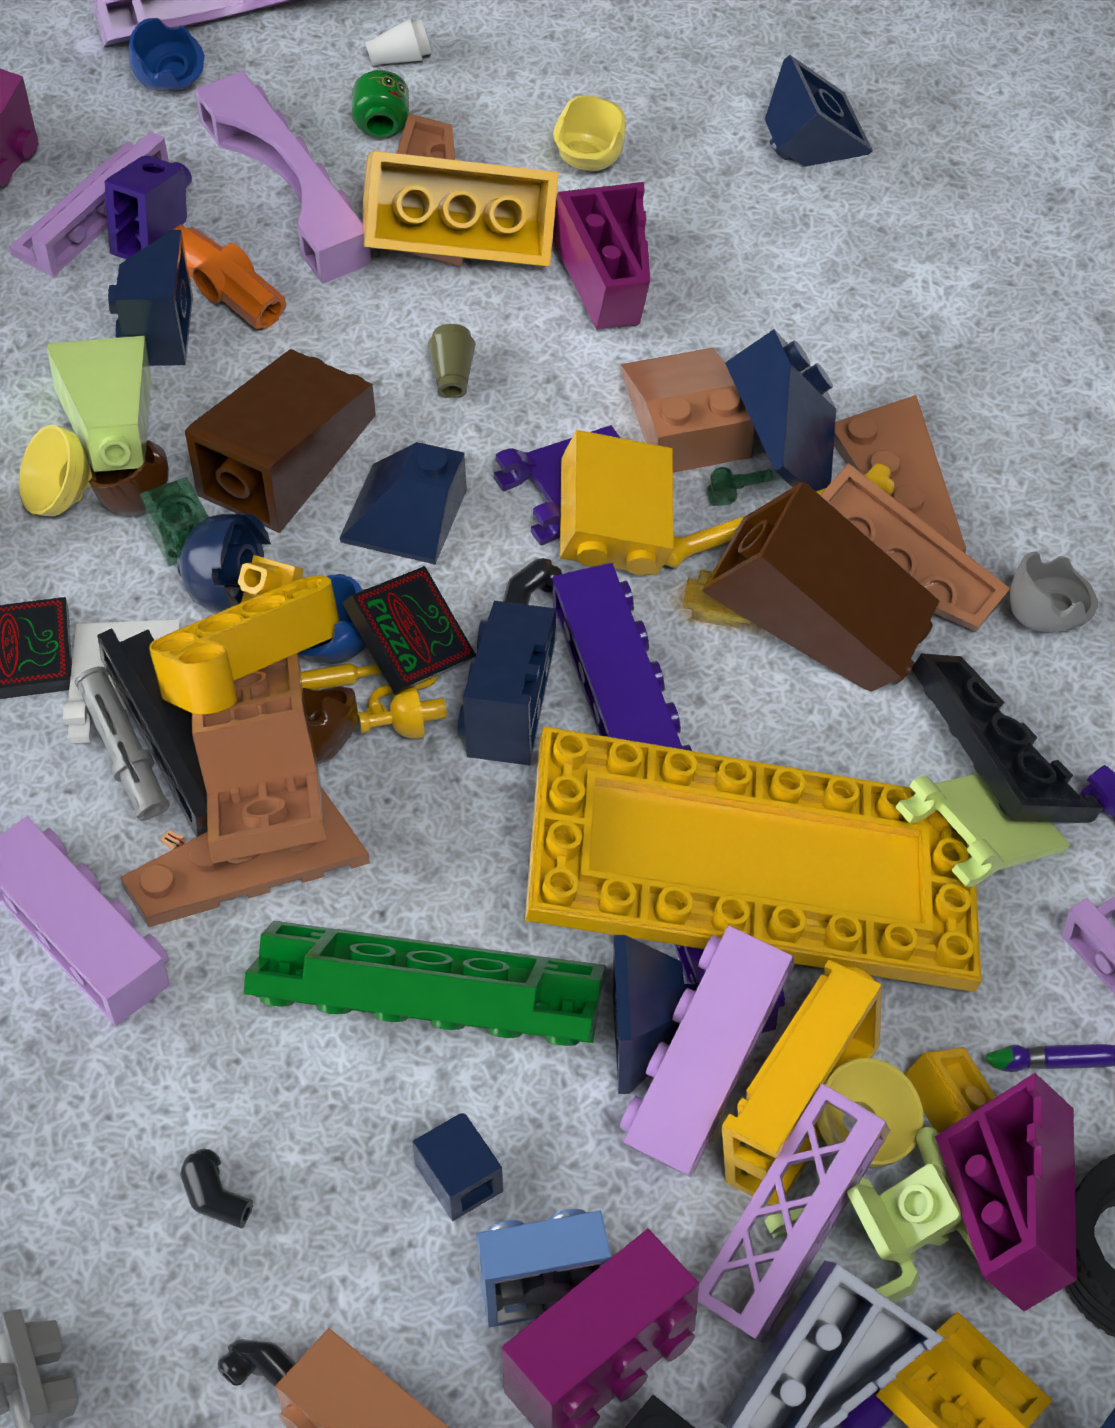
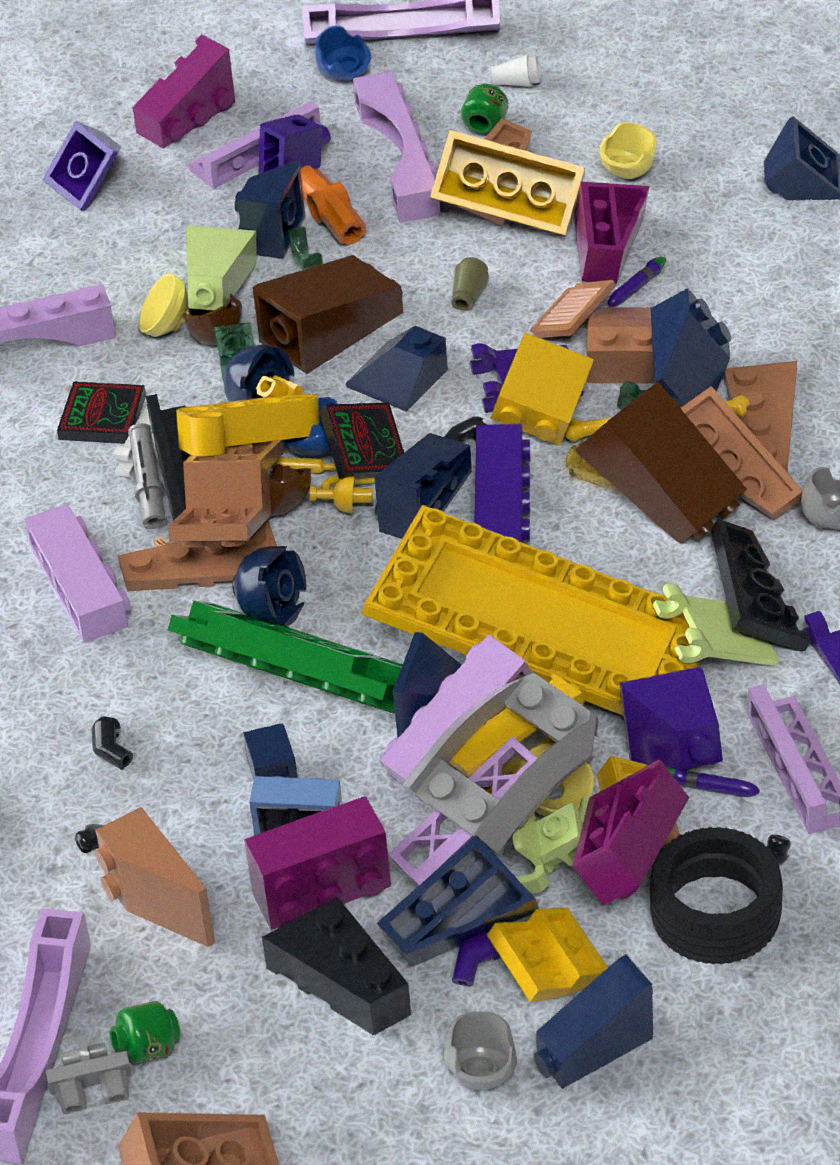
camera: 20 degrees right, 10 degrees down
(210, 354) = (300, 249): none -> clear green arm
(356, 885) = (267, 580): none -> dark blue cylinder
(601, 373) = (572, 309): none -> nougat window
(677, 294) = (638, 280): none -> dark purple piece
(785, 1200) = (473, 807): none -> light grey wedge
(994, 985) = (671, 720): none -> dark purple slope

